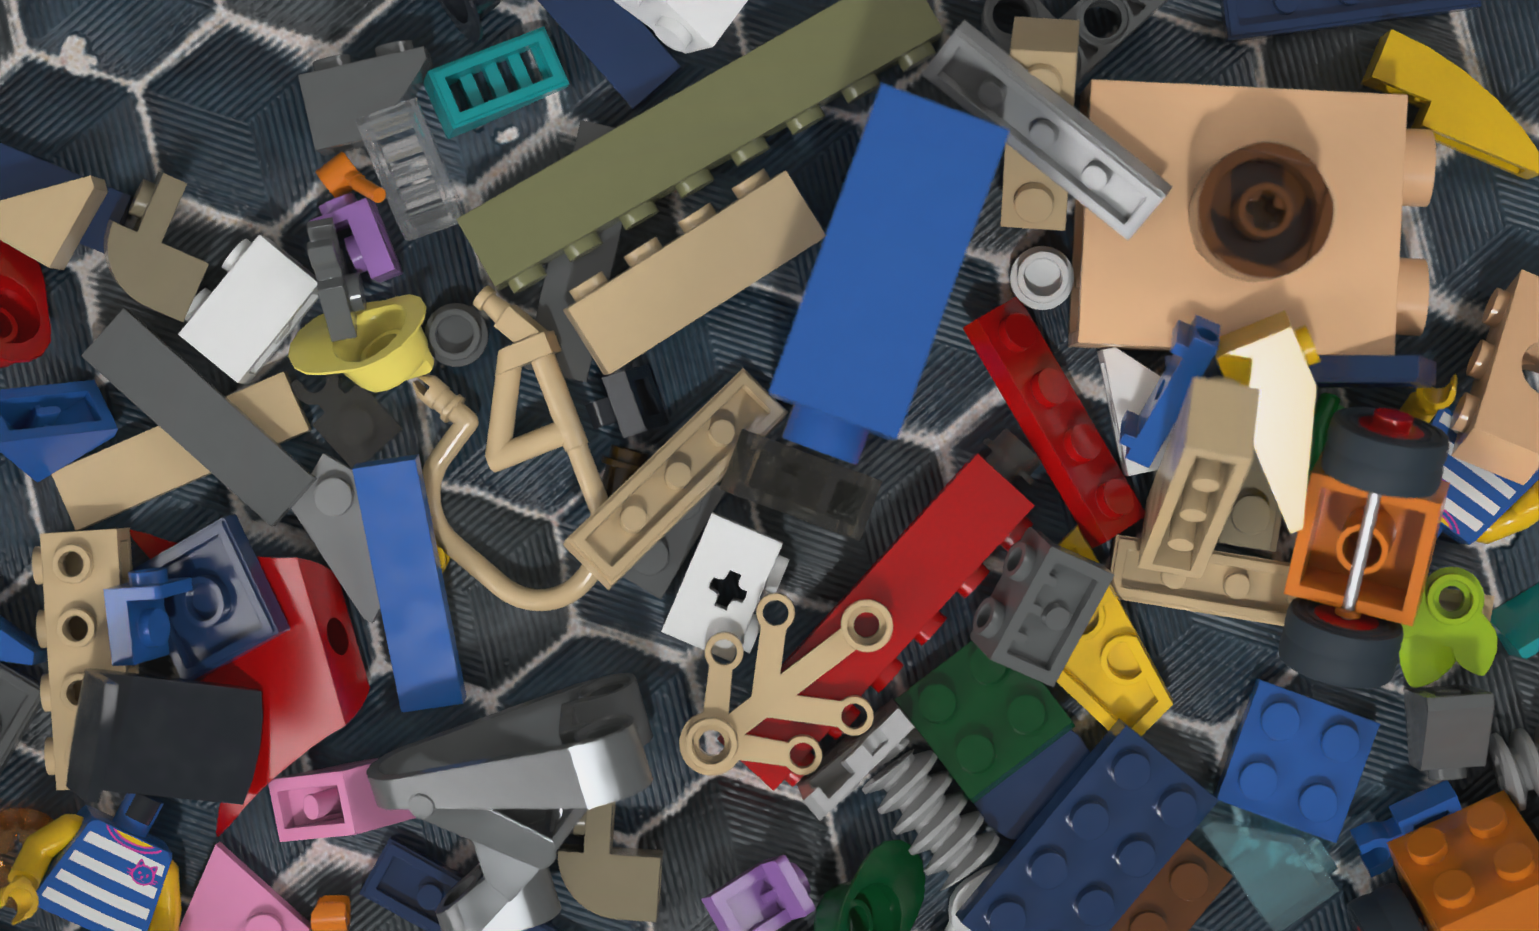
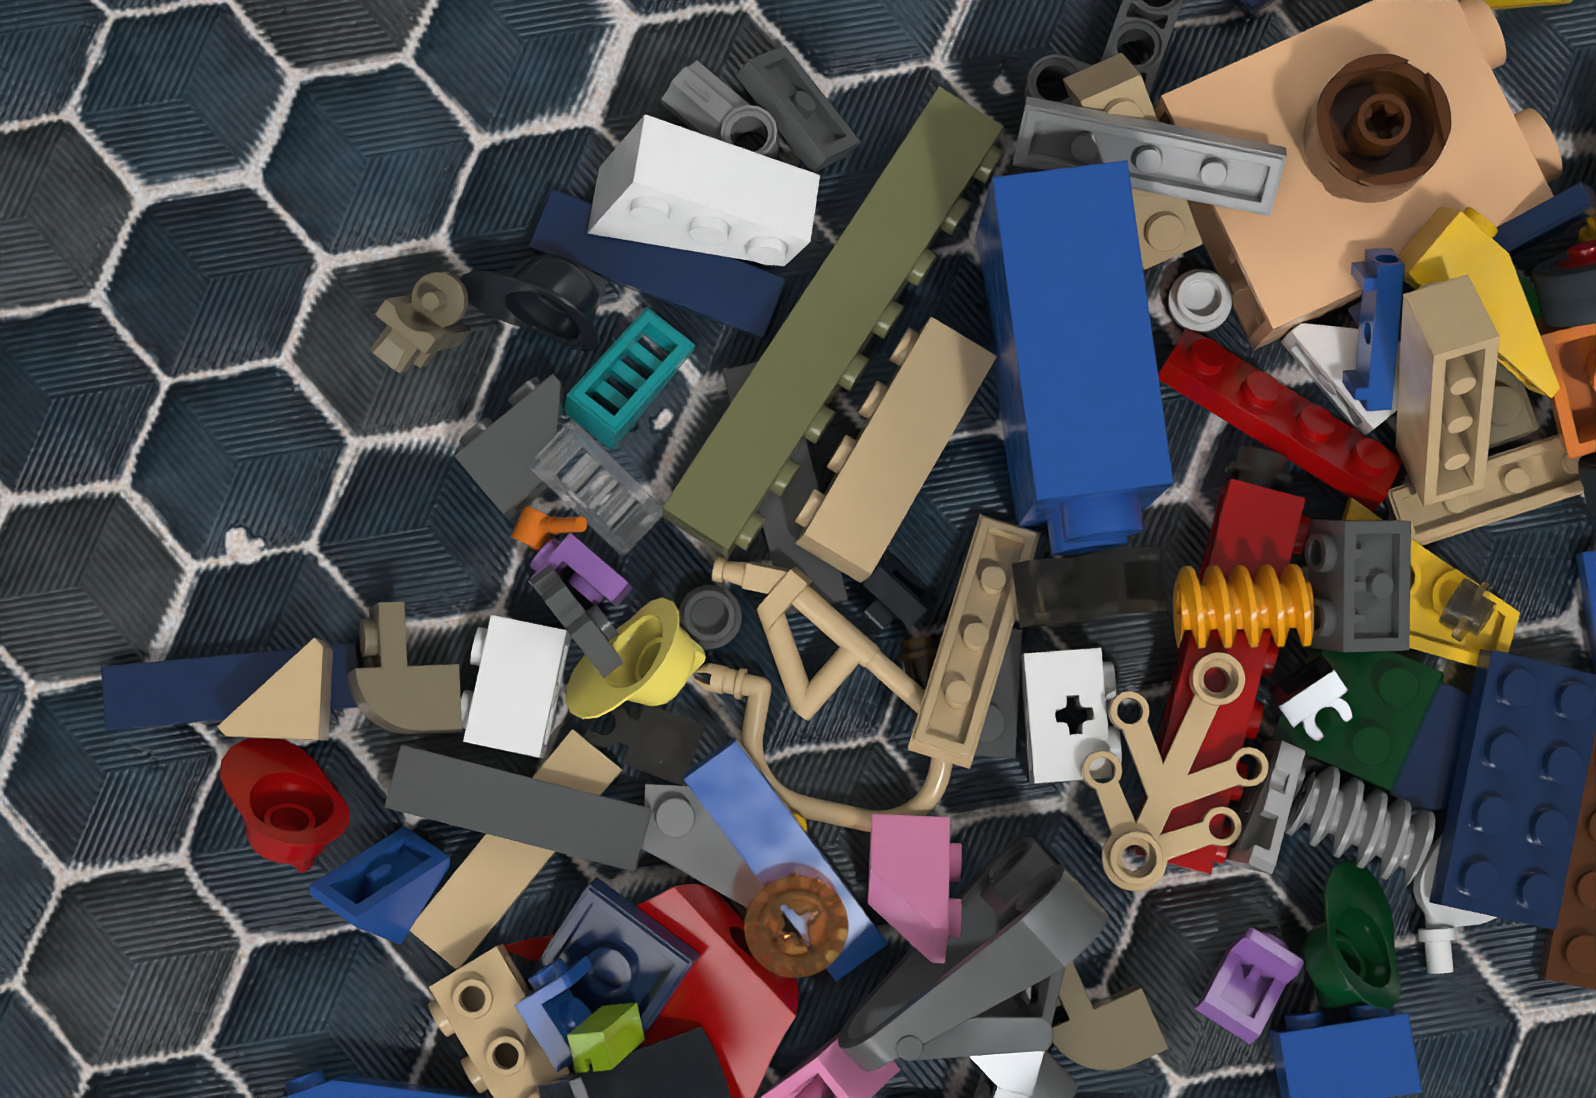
camera: 20 degrees left, 5 degrees down
(169, 658) = (606, 1037): none -> lime piece
(368, 666) = (787, 953): none -> clear orange gear
(509, 657) = (911, 879): none -> bright pink slope
(923, 573) = (1243, 604): none -> light orange piece
(944, 677) = (1307, 692): none -> tile
(1124, 679) = (1468, 609): none -> clear smoke plate

